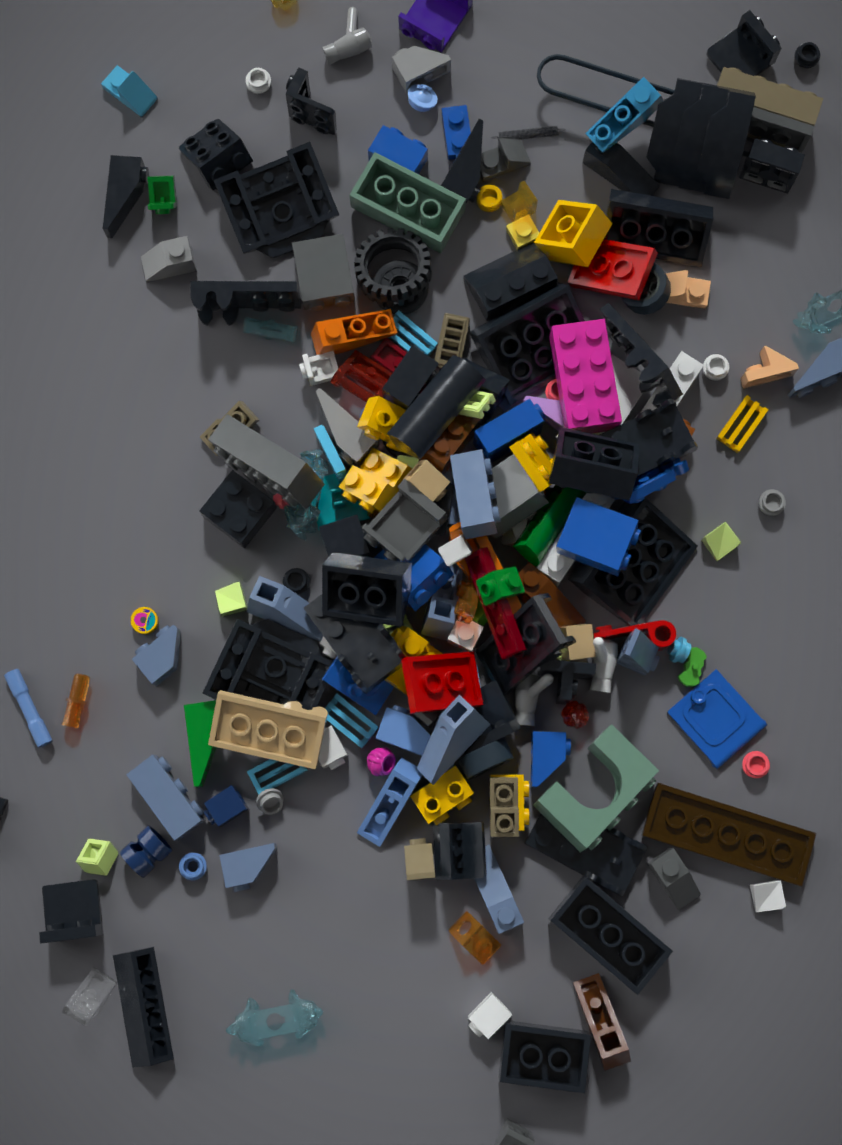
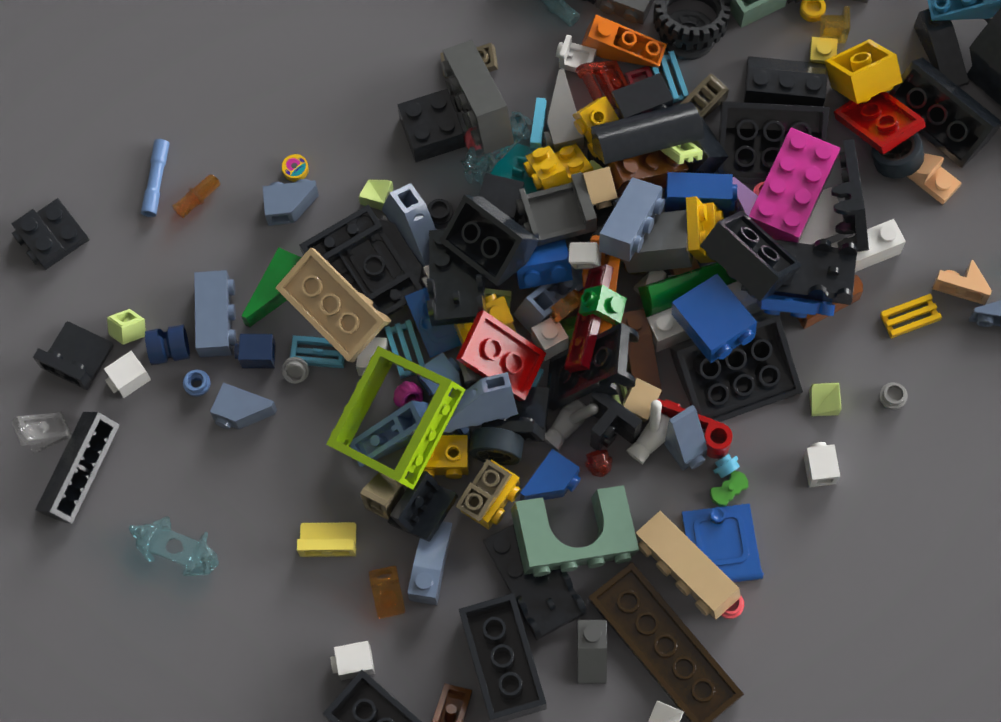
camera: 35 degrees right, 10 degrees down
(128, 900) = (126, 375): none -> white brick
(396, 927) = (327, 539): none -> light yellow panel
(429, 789) = (427, 432): none -> lime window
(706, 757) = (687, 565): none -> tan brick
(715, 367) = (918, 255): white plate -> none
(754, 599) = (821, 464): none -> white brick

